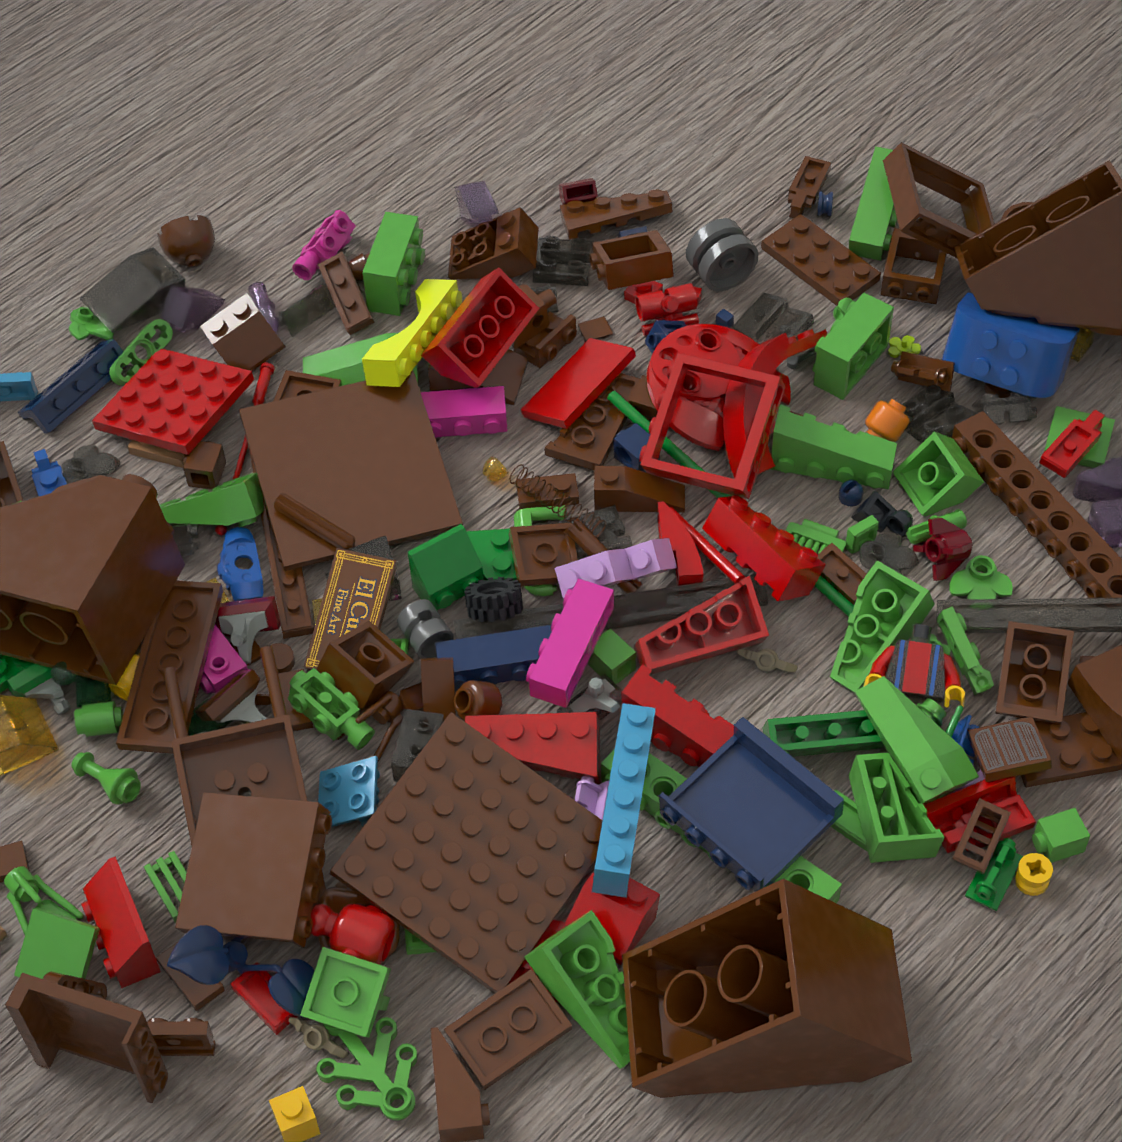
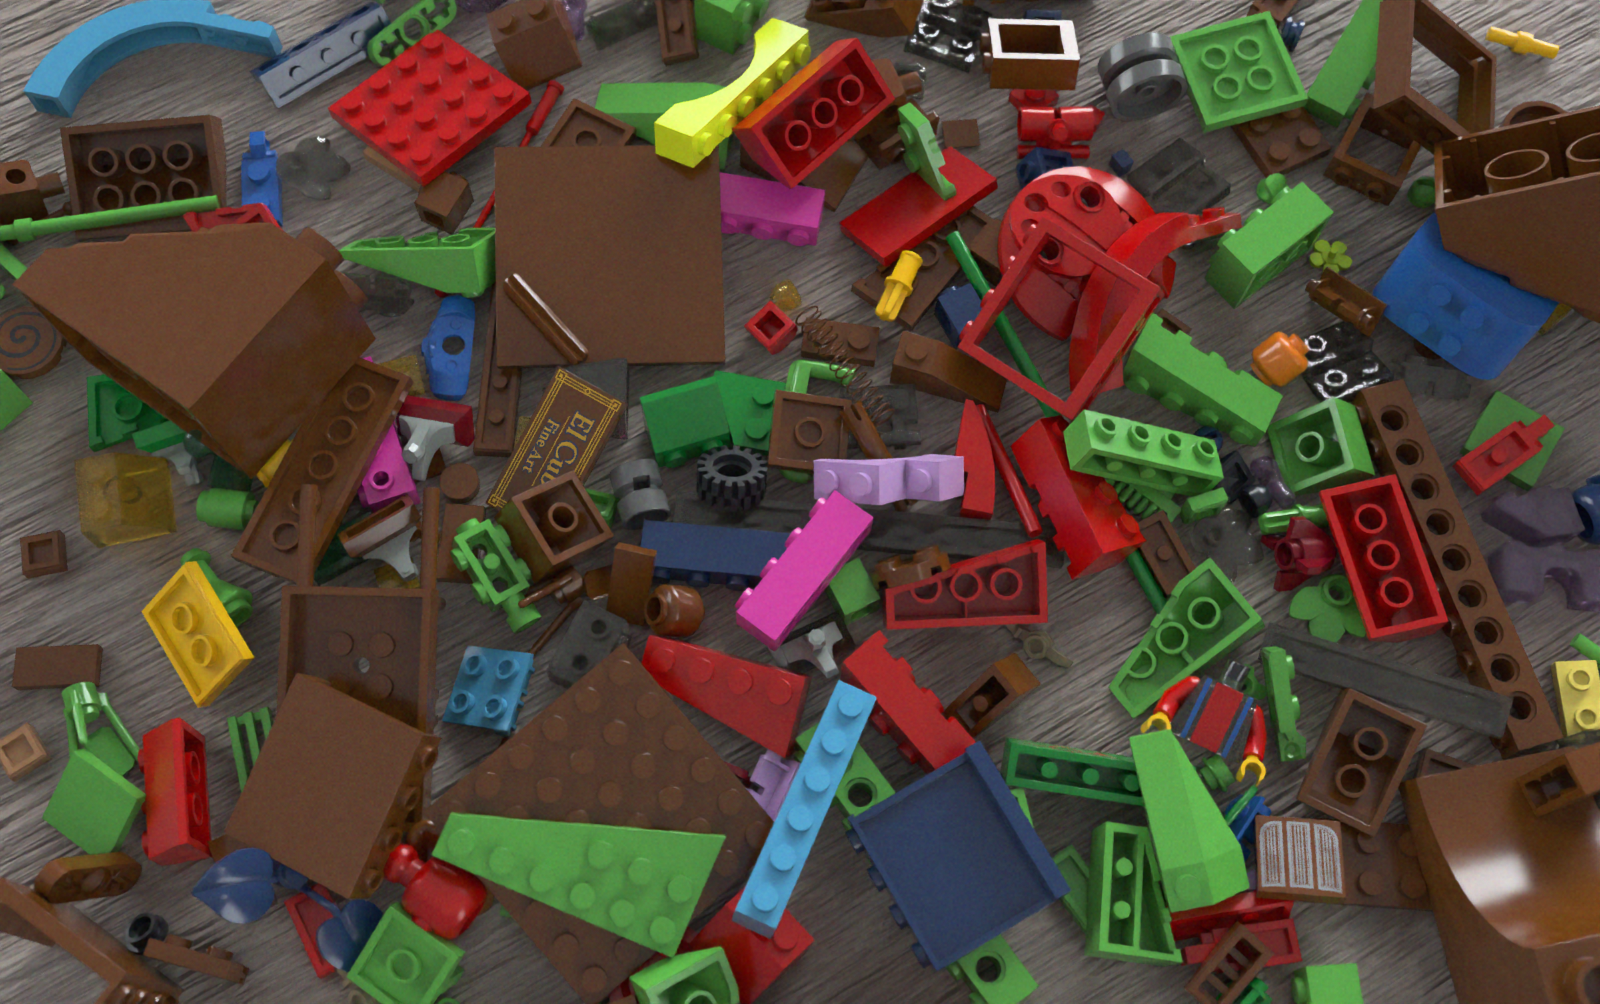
camera: 10 degrees right, 15 degrees up
(103, 810) = (197, 634): none -> yellow tile
(487, 883) = (605, 874): none -> bright green wing
(492, 492) = (772, 328): none -> red brick
(571, 340) = (922, 150): none -> bright green wing
(581, 437) = (898, 286): none -> yellow axle
(639, 628) = (906, 571): none -> reddish brown plate
(745, 695) = (993, 695): none -> reddish brown slope
(794, 235) = (1238, 71): none -> bright green plate
(803, 503) = (1142, 454): none -> bright green brick
(903, 500) = (1269, 475): none -> clear purple arm
(958, 287) = (1422, 192): none -> bright green hinge
(1000, 172) = (1522, 42): none -> yellow bar
(1009, 535) = (1383, 560): none -> red slope

